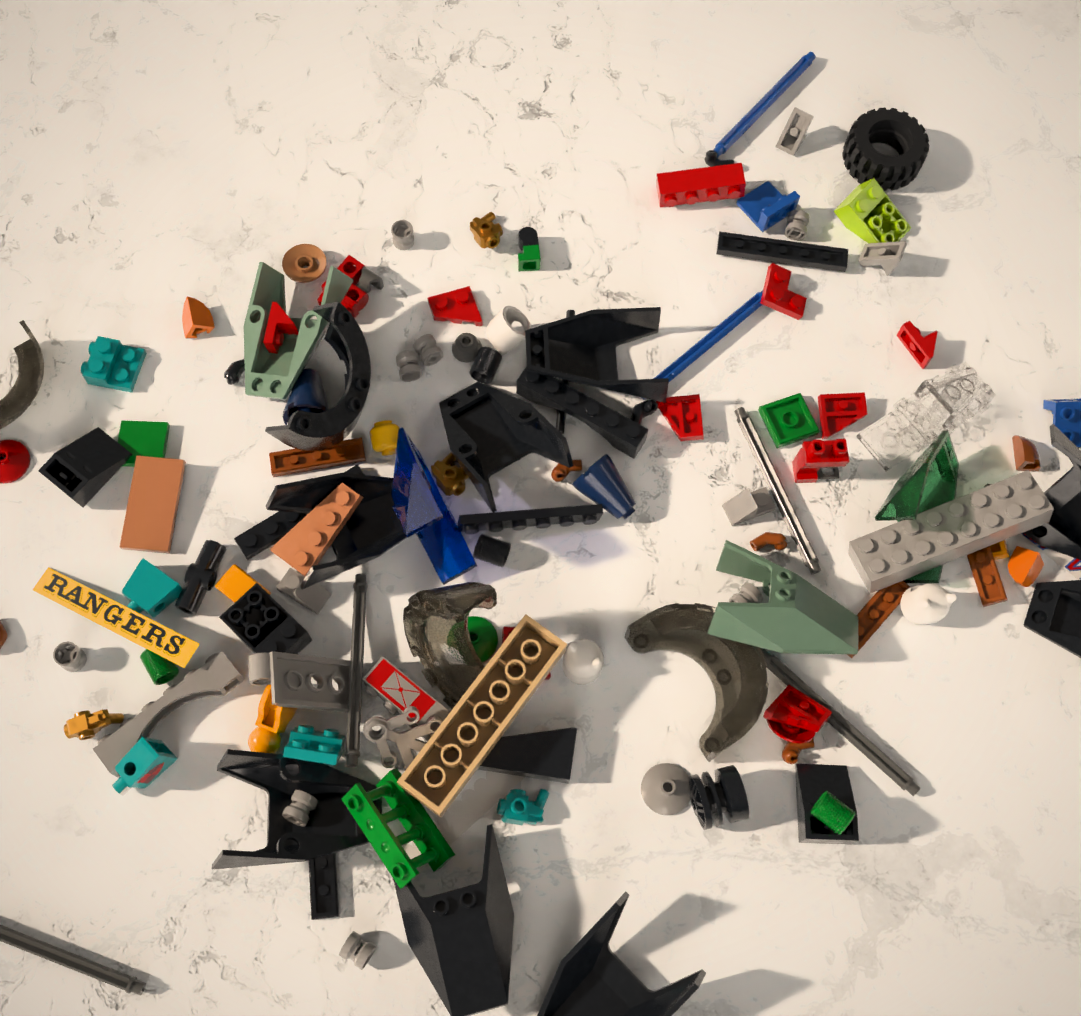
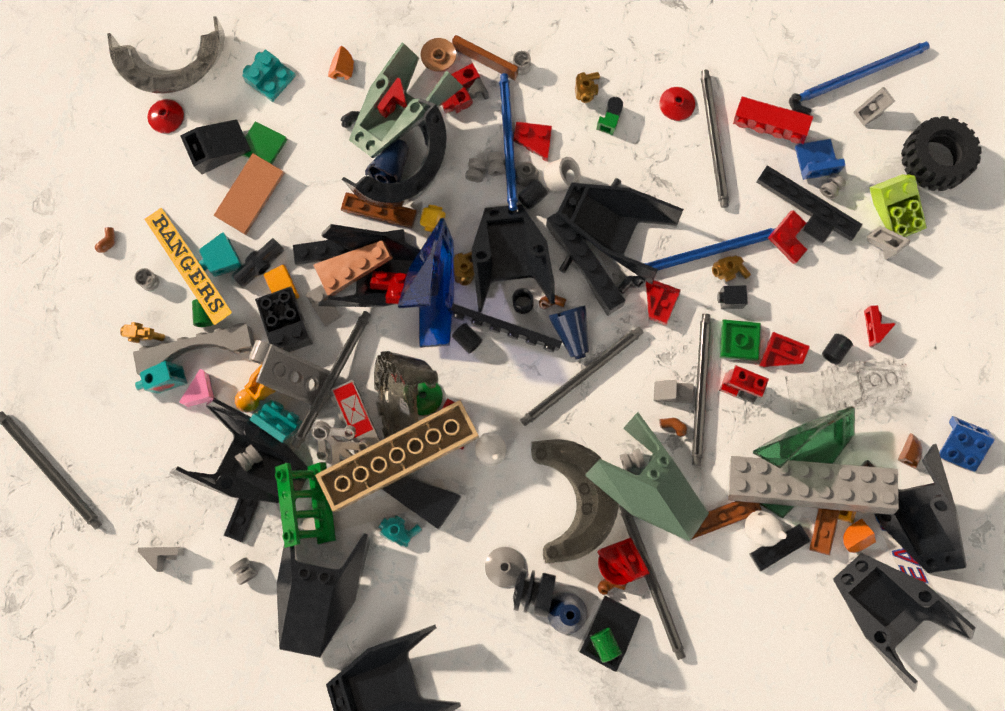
camera: 30 degrees right, 10 degrees up
(198, 759) = (198, 391): none -> bright pink slope
(235, 985) = (156, 555): none -> light grey slope
(359, 245) = (485, 57): none -> dark orange tile
(380, 525) = (389, 281): none -> red plate
(430, 322) = (508, 142): none -> blue piece
(534, 471) = (519, 293): none -> black piece
(591, 217) = (673, 109): none -> red dish
(640, 536) = (581, 376): none -> dark grey piece
(650, 229) = (714, 139): none -> dark grey piece
(736, 351) = (728, 267): none -> pearl gold piece
(757, 378) = (732, 297): none -> black brick
(767, 805) = (560, 606): none -> dark blue cone
(806, 272) = (818, 228): none -> black piece
(893, 383) = (837, 348): none -> black piece
(944, 631) = (768, 555): none -> black tile

